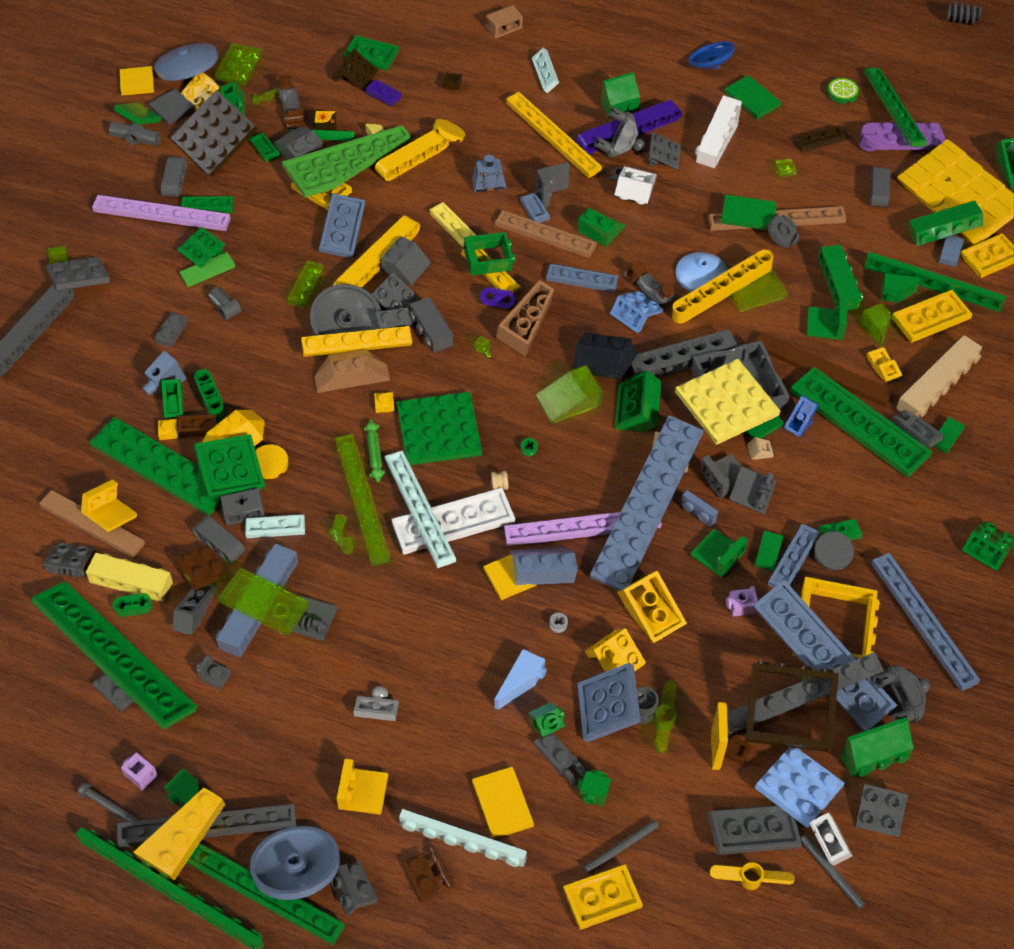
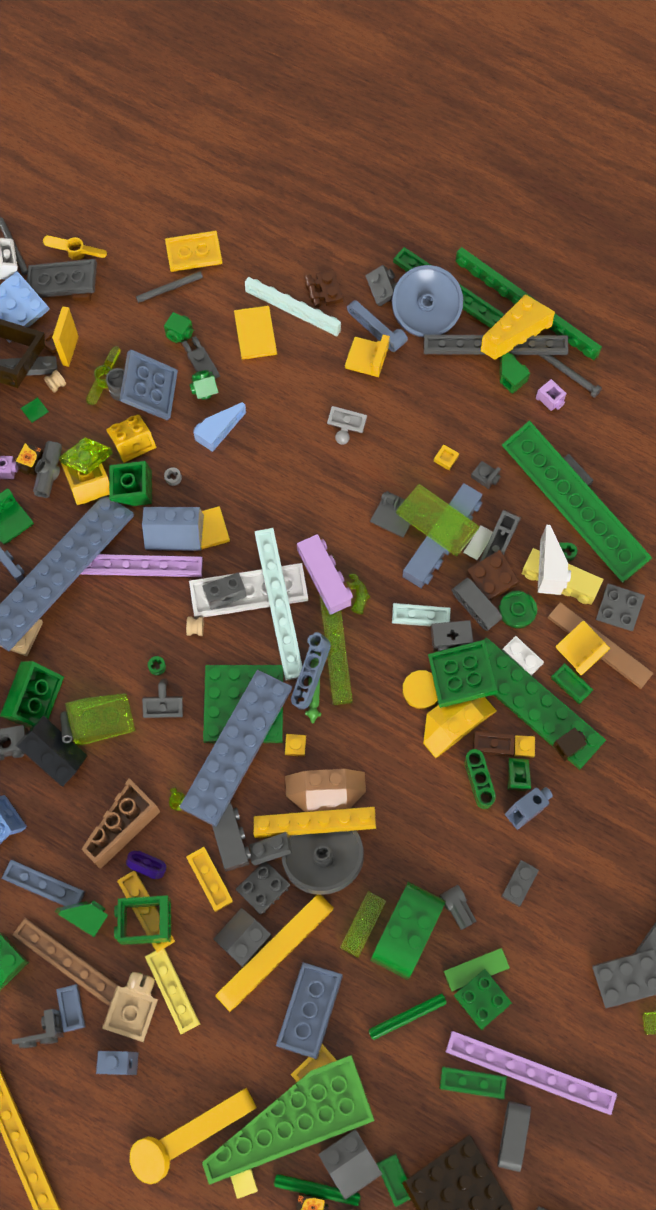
camera: 170 degrees left, 15 degrees up
(124, 423) = (570, 744): none -> dark brown brick
(126, 489) = (571, 683): none -> green tile
(140, 554) = (552, 565): none -> white slope
(170, 503) = (523, 655): none -> white plate
(175, 543) = (518, 609): none -> green tile
(216, 608) = (478, 542): none -> white sticker
(259, 684) = (446, 457): none -> yellow plate
(262, 234) = (407, 1016): none -> green axle
(265, 277) = (408, 930): none -> green brick
(334, 813) = (375, 327): none -> sand blue beam
(369, 474) = (306, 671): none -> sand blue beam
(377, 534) = (324, 574): none -> lavender brick
(435, 383) = (236, 748): none -> sand blue plate
(441, 296) = (209, 879): none -> yellow plate
(475, 503) = (224, 591): none -> dark grey brick
(484, 209) = (132, 1008): none -> tan plate
(516, 412) = (163, 705): none -> dark grey plate
(540, 249) = (84, 916): none -> green slope
(596, 374) = (65, 728): none -> dark grey piece
(598, 598) = (130, 483): none -> green slope
(656, 620) = (86, 455): none -> clear neon green plate
(693, 602) = (47, 469): none -> dark grey piece
(715, 613) = (28, 459): none -> brick
(718, 696) = (55, 381): none -> tan wheel
(732, 674) = (34, 410): none -> green sticker

